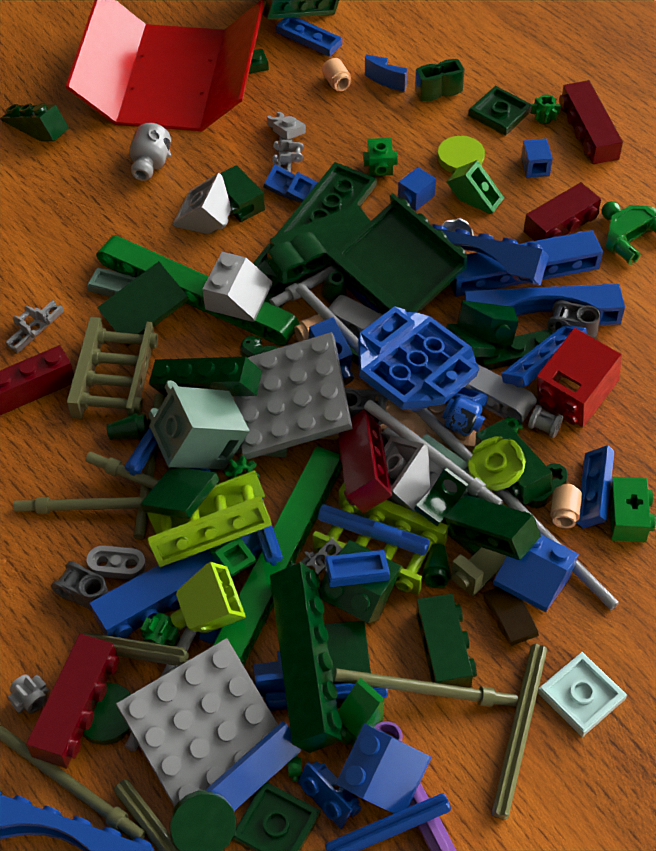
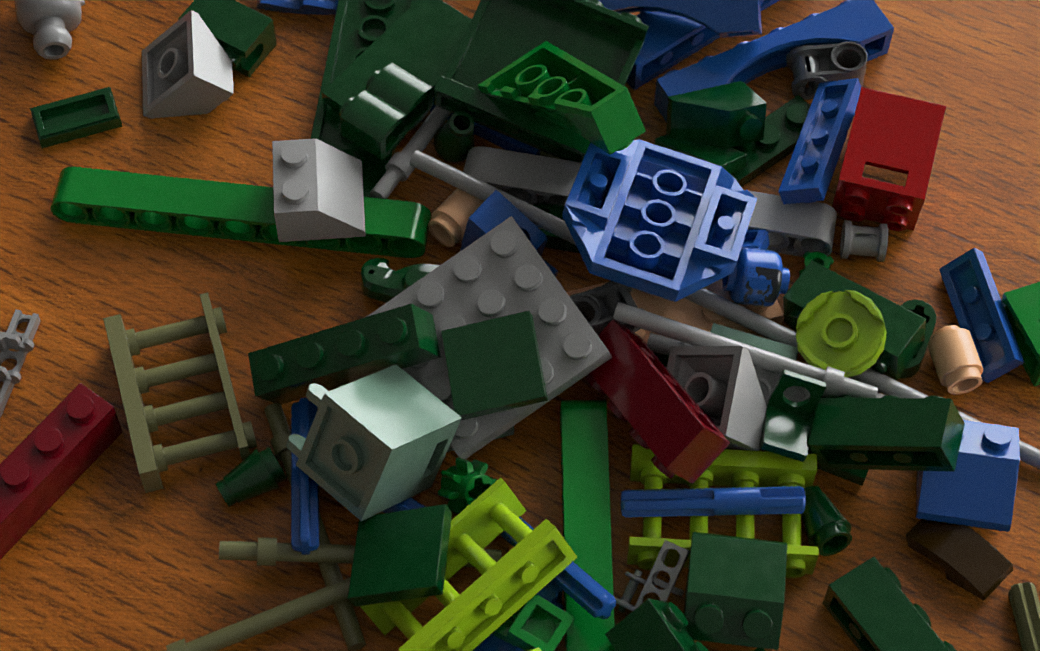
camera: 25 degrees left, 5 degrees up
(108, 282) = (104, 248): sand green tile -> none
(136, 213) = (76, 117): none -> dark green tile
(144, 300) = (172, 263): dark green tile -> none
(281, 409) = (494, 365): none -> dark green tile
(357, 568) = (731, 574): blue tile -> none
(397, 276) = (571, 94): none -> green wedge
(477, 571) = (882, 505): olive bracket -> none

